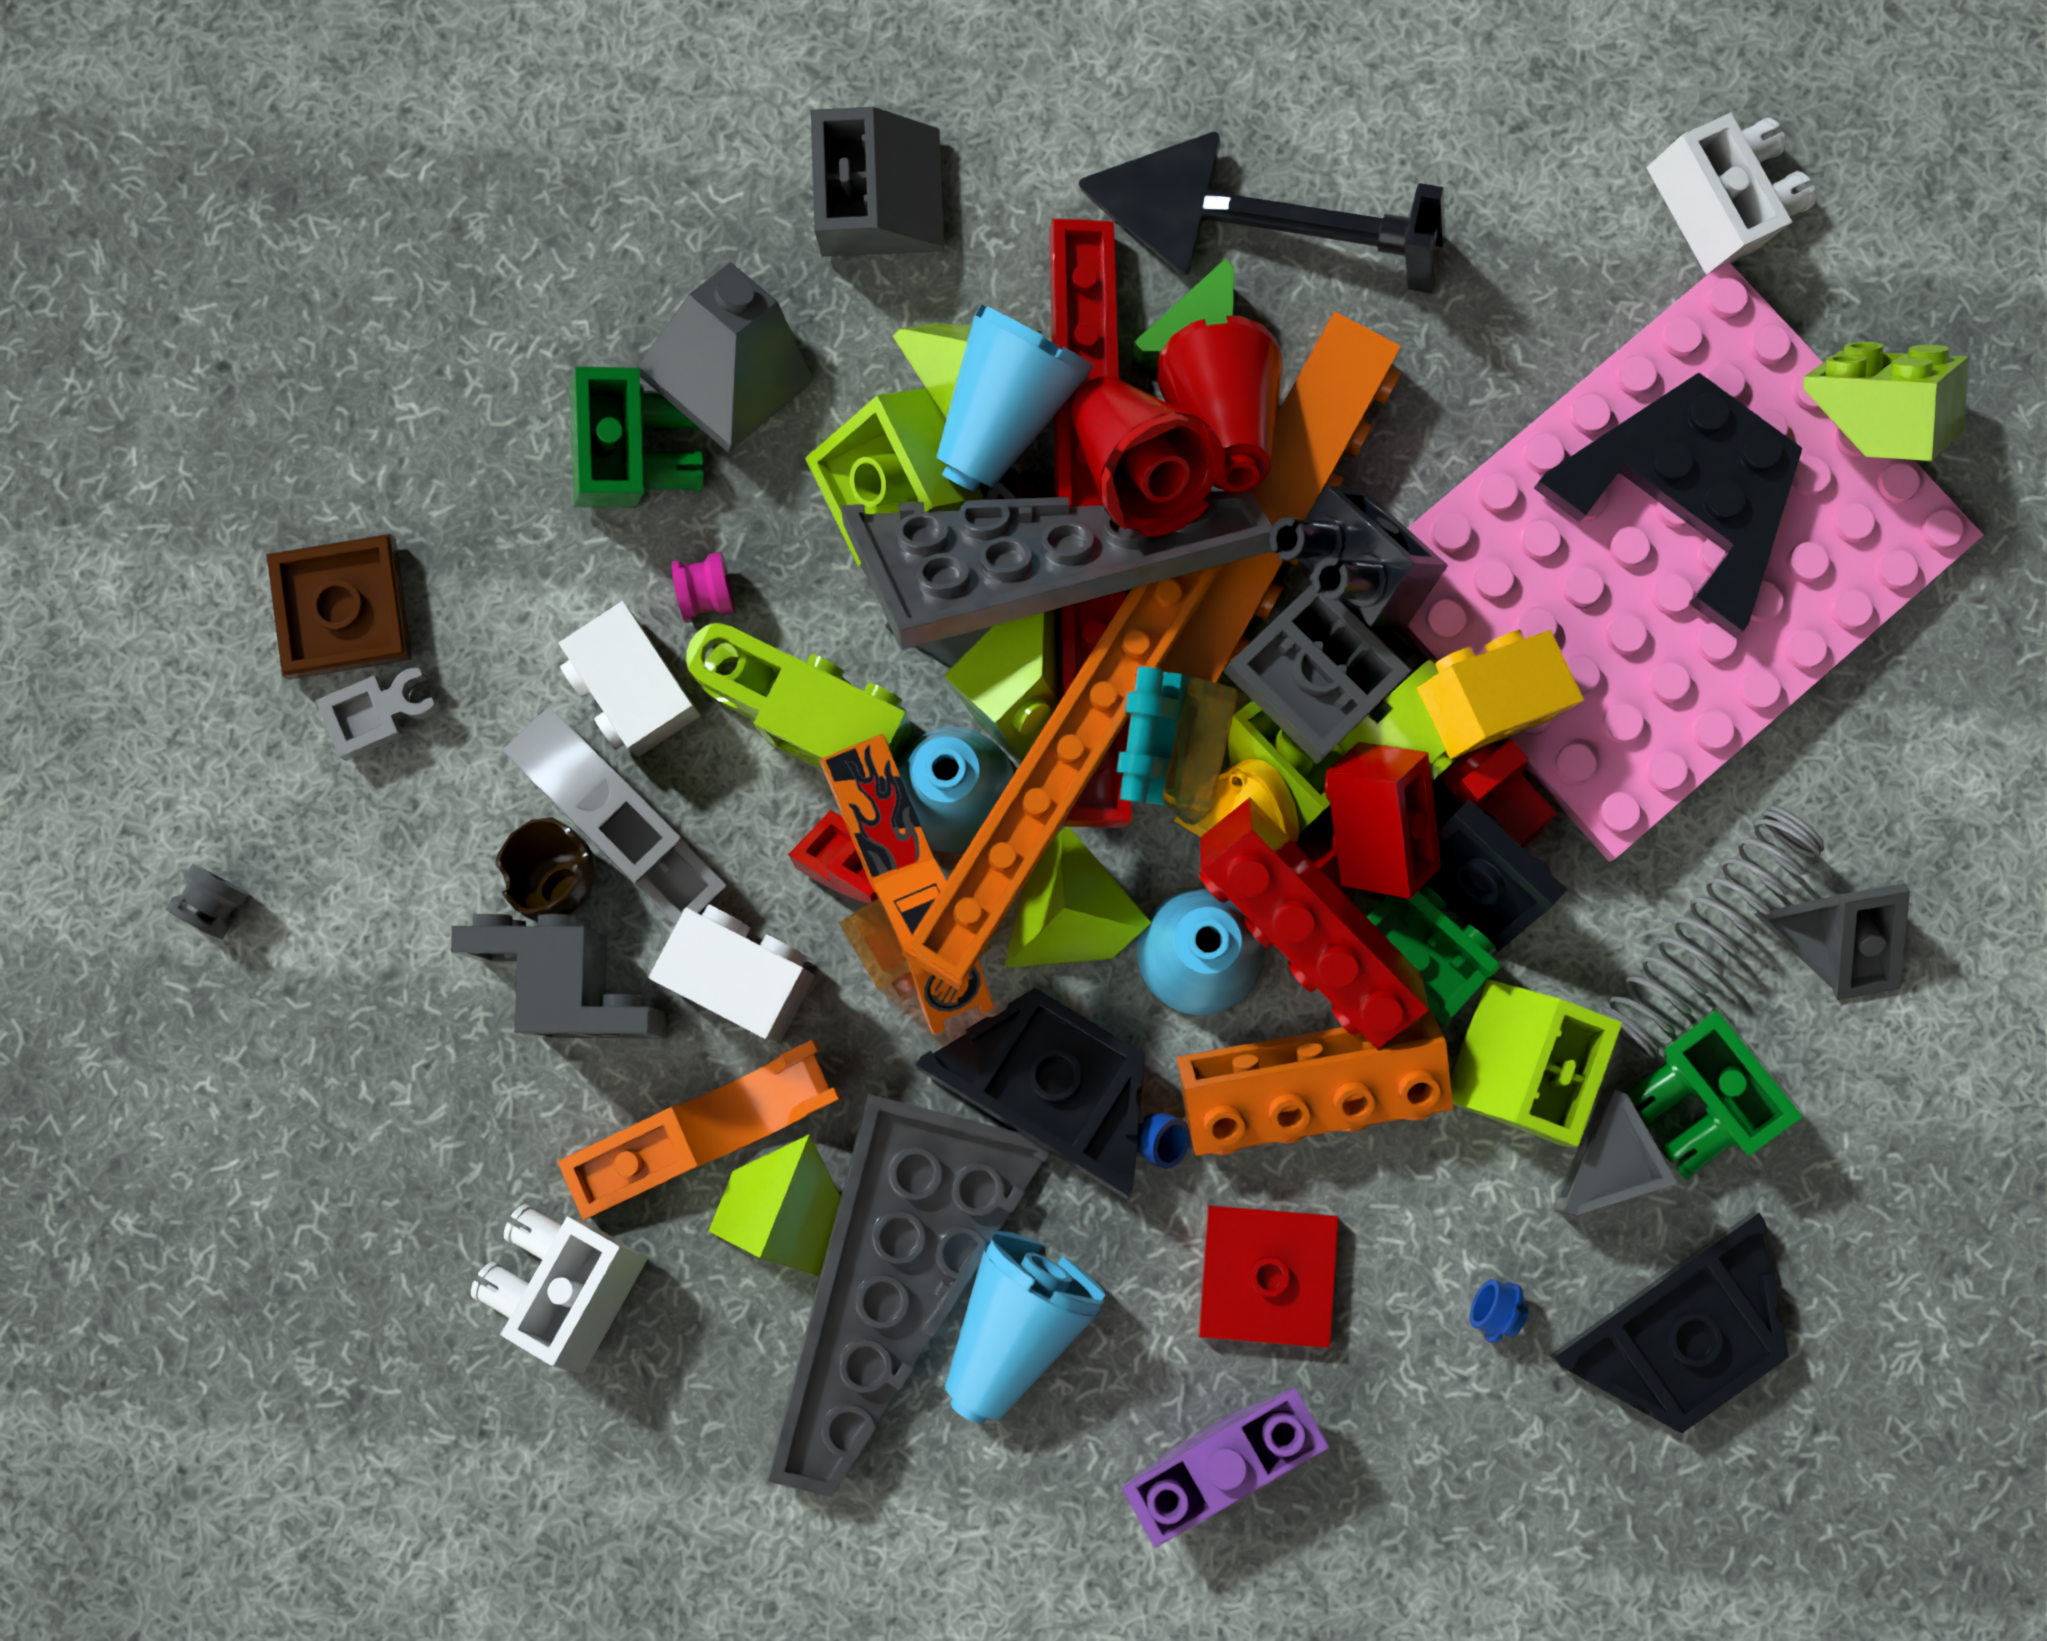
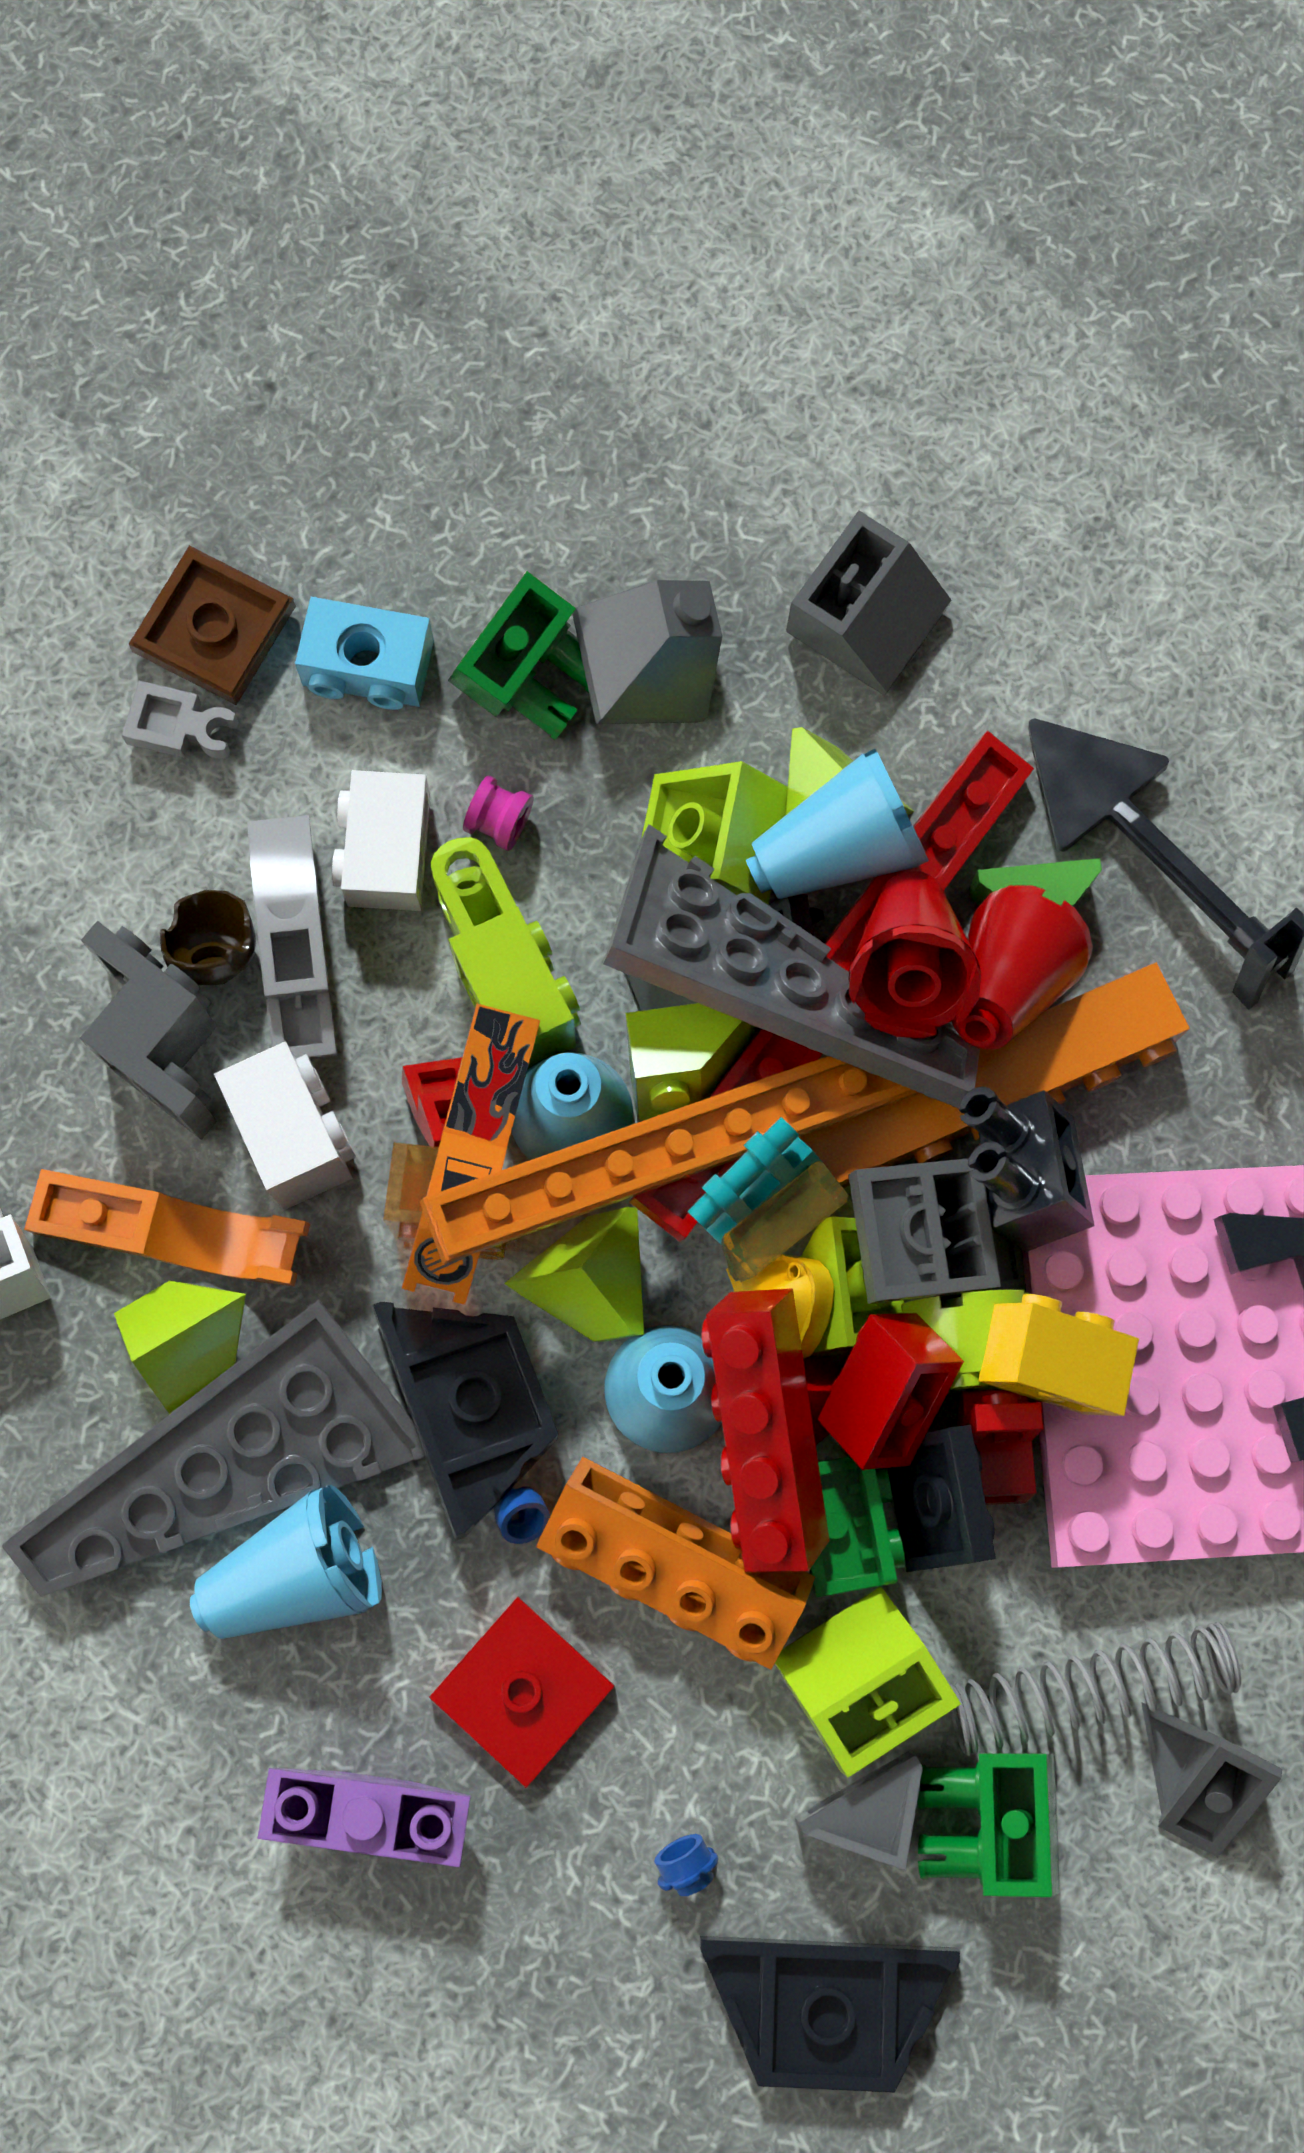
camera: 25 degrees right, 5 degrees down
(451, 534) = (340, 630): none -> medium azure brick

